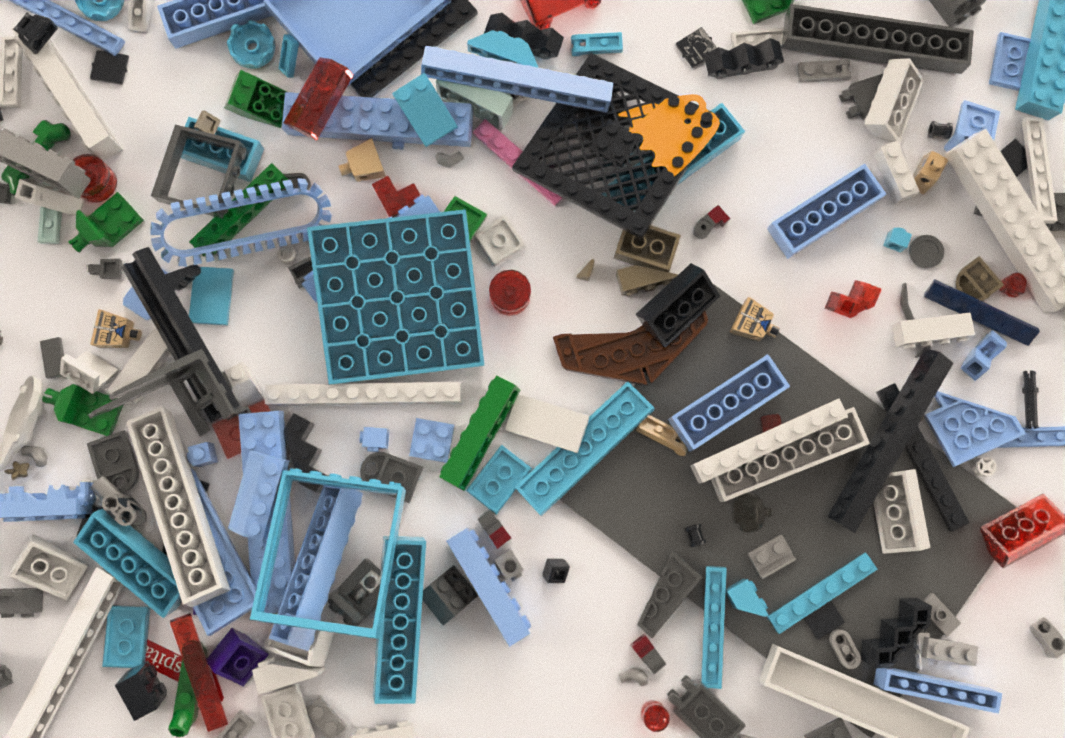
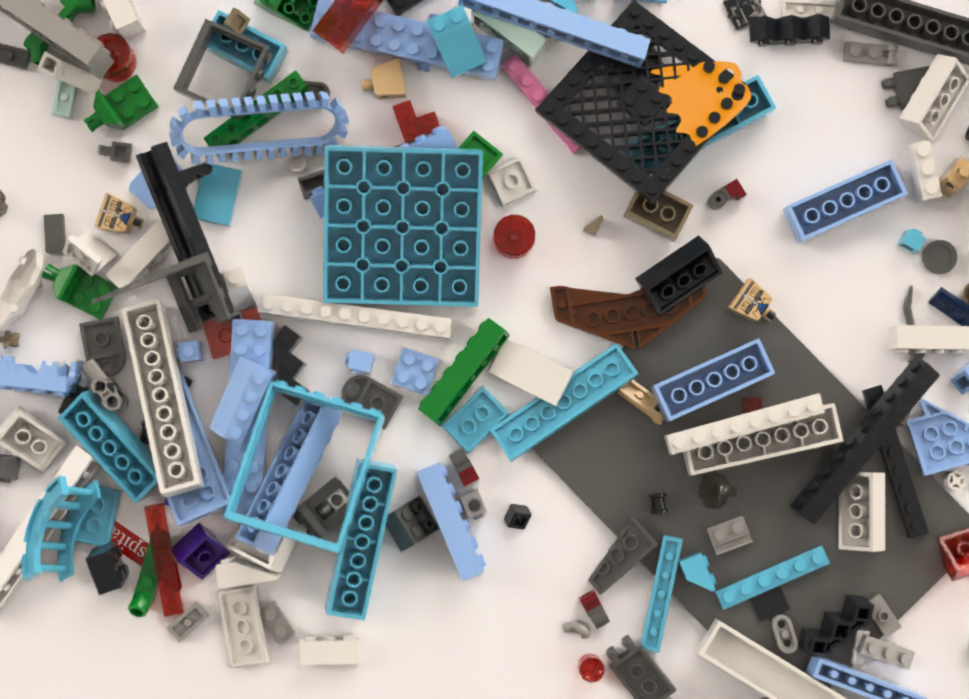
camera: 10 degrees right, 5 degrees up
(37, 453) = (29, 325): light grey arm -> none
(63, 652) = (39, 520): none -> medium azure fence
(447, 160) = (471, 91): light grey arm -> none
(639, 278) = (646, 241): dark tan slope -> none
(861, 297) = (863, 295): clear red brick -> none

